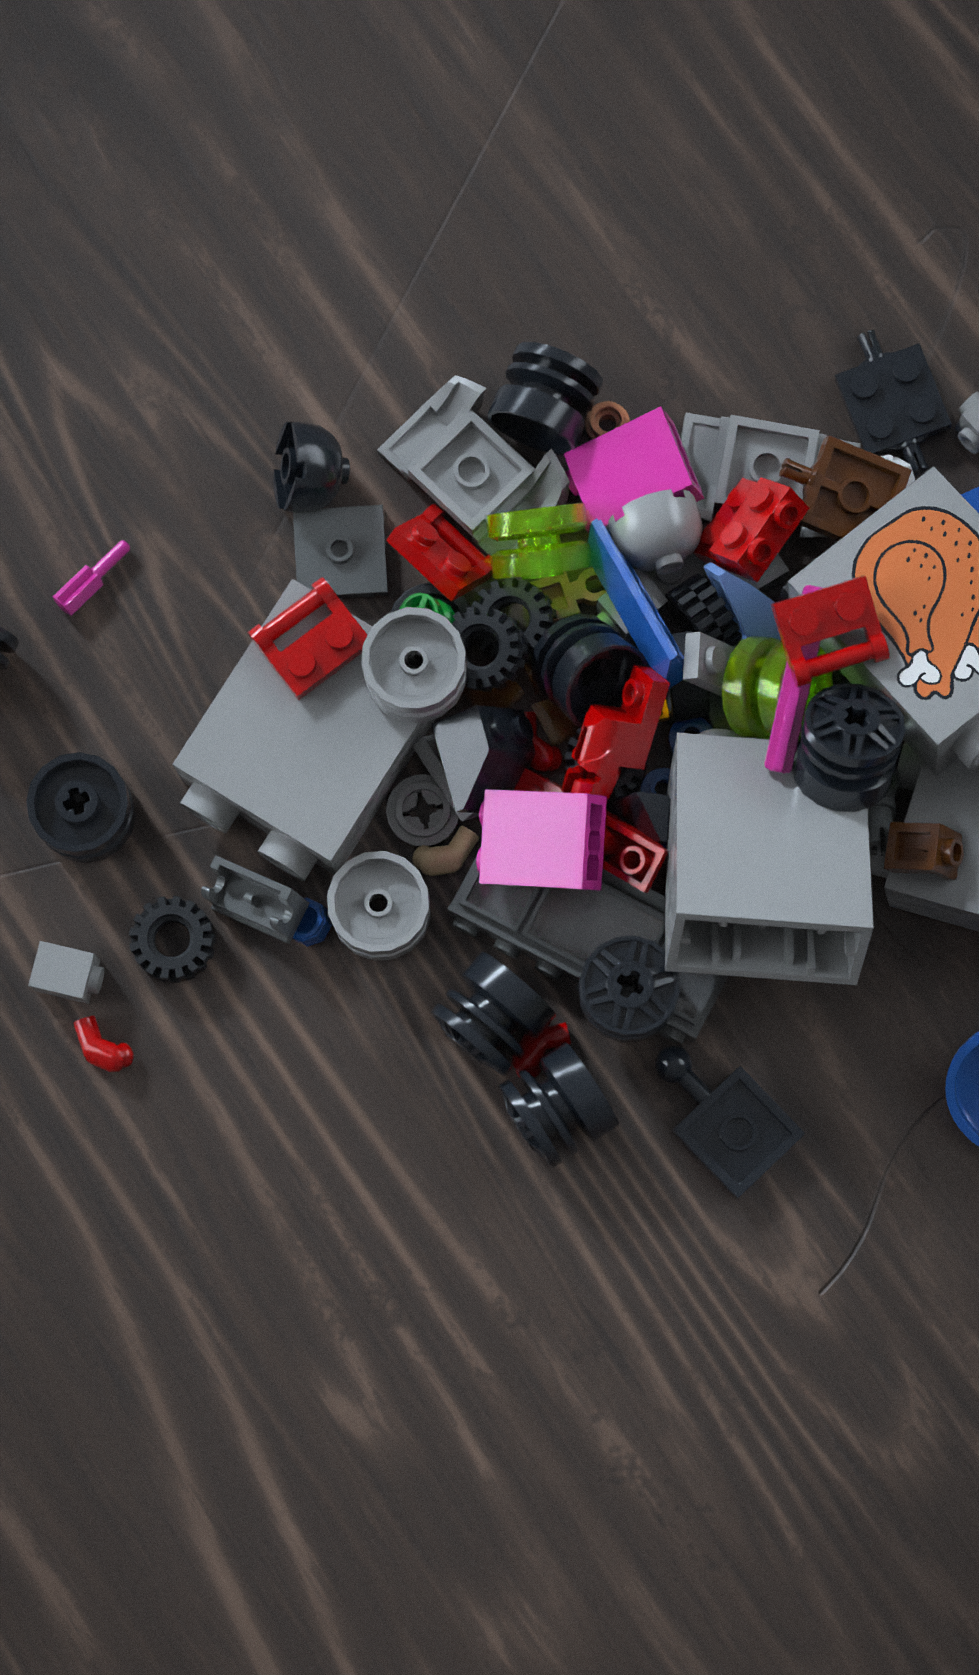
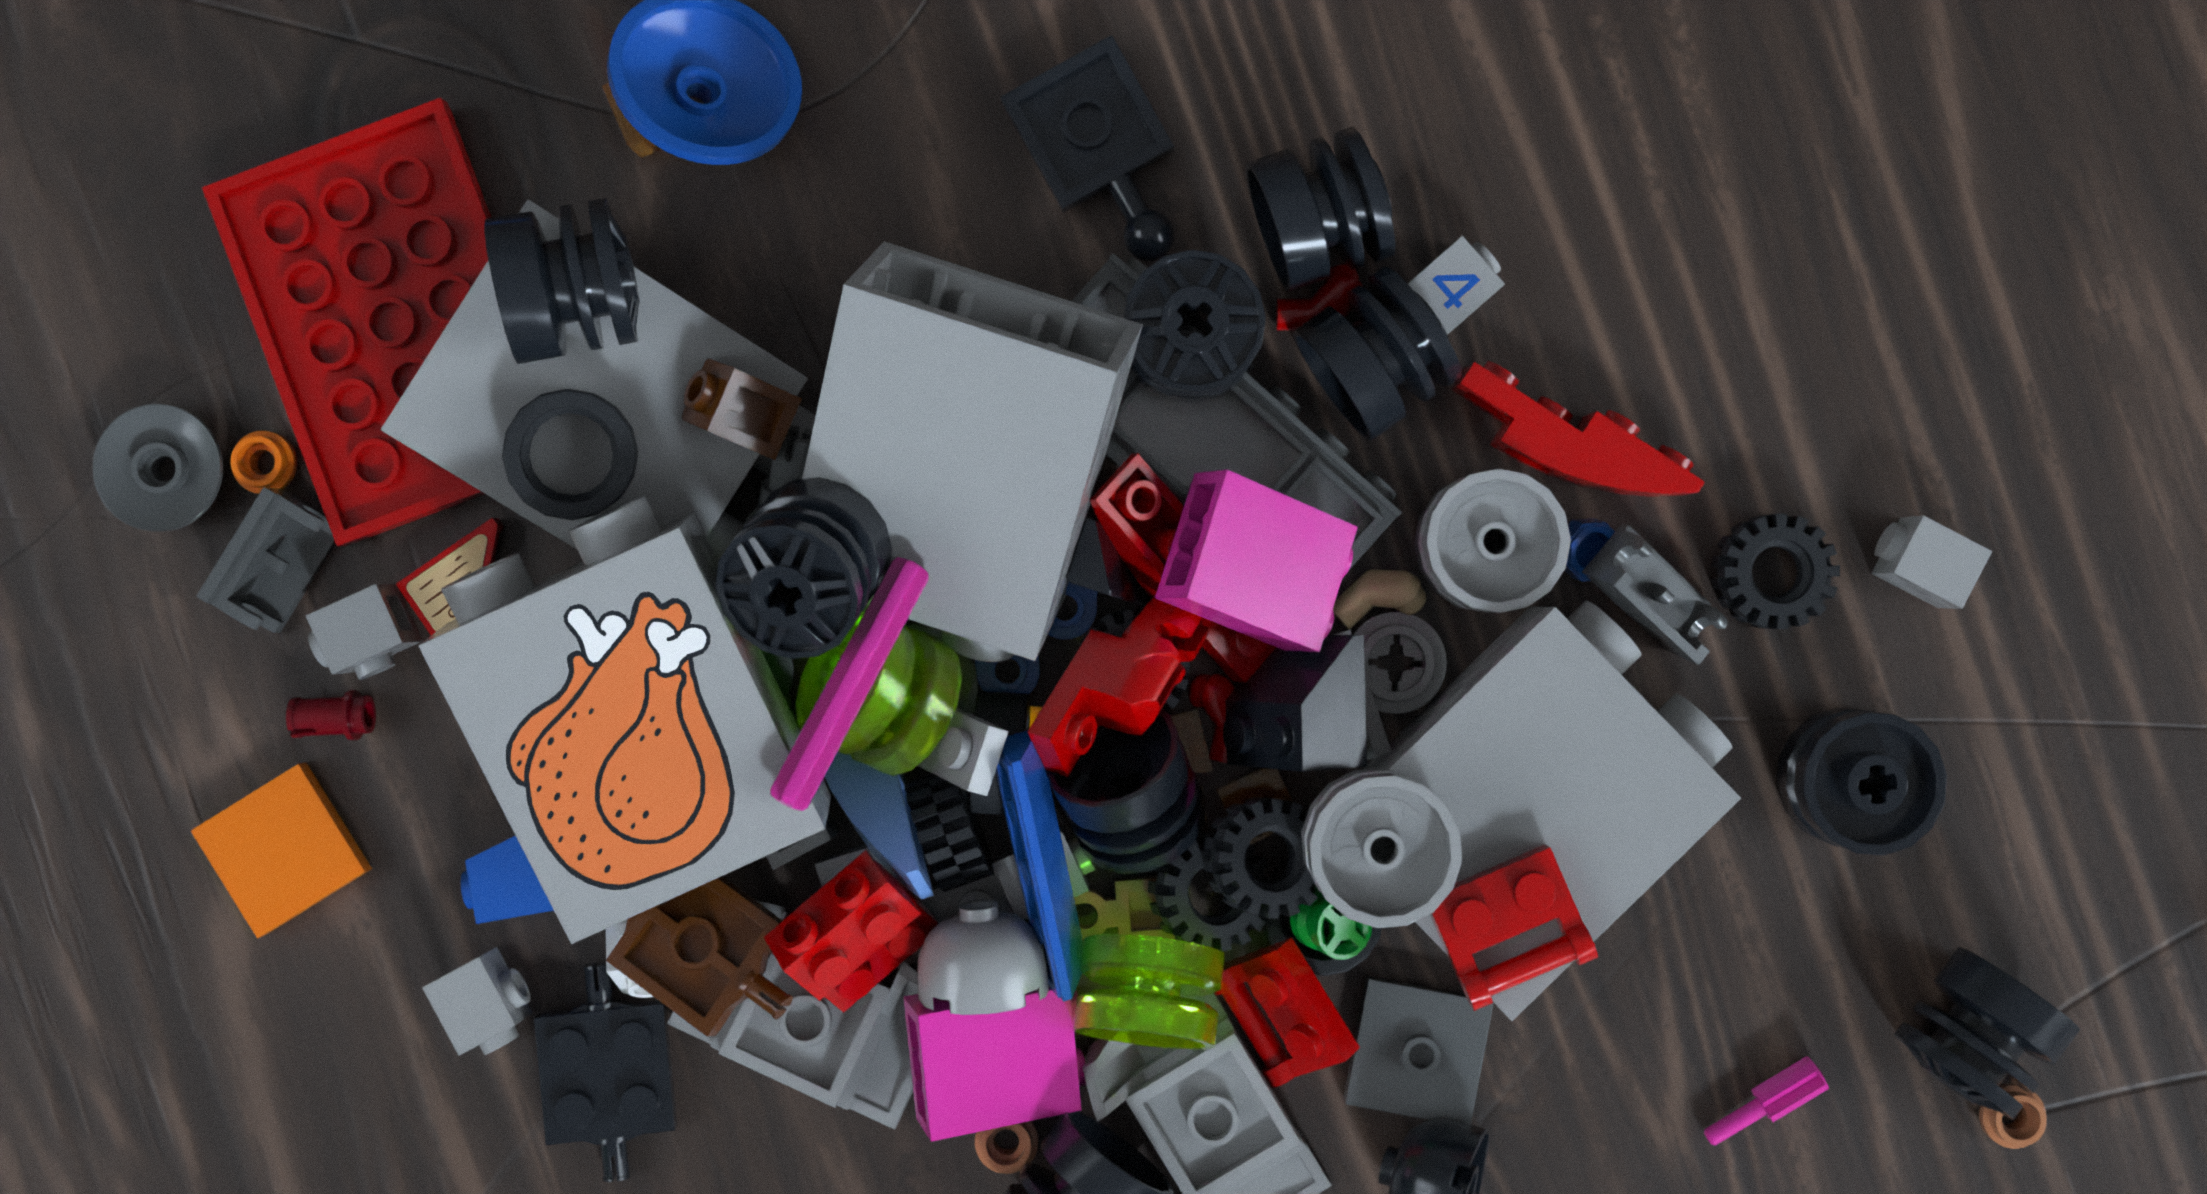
camera: 170 degrees left, 10 degrees up
(101, 1051) = (1903, 445): red arm -> none
(319, 986) = (1594, 455): none -> red slope
(449, 1080) = (1458, 282): none -> light grey brick
(825, 615) = (785, 756): red plate -> none

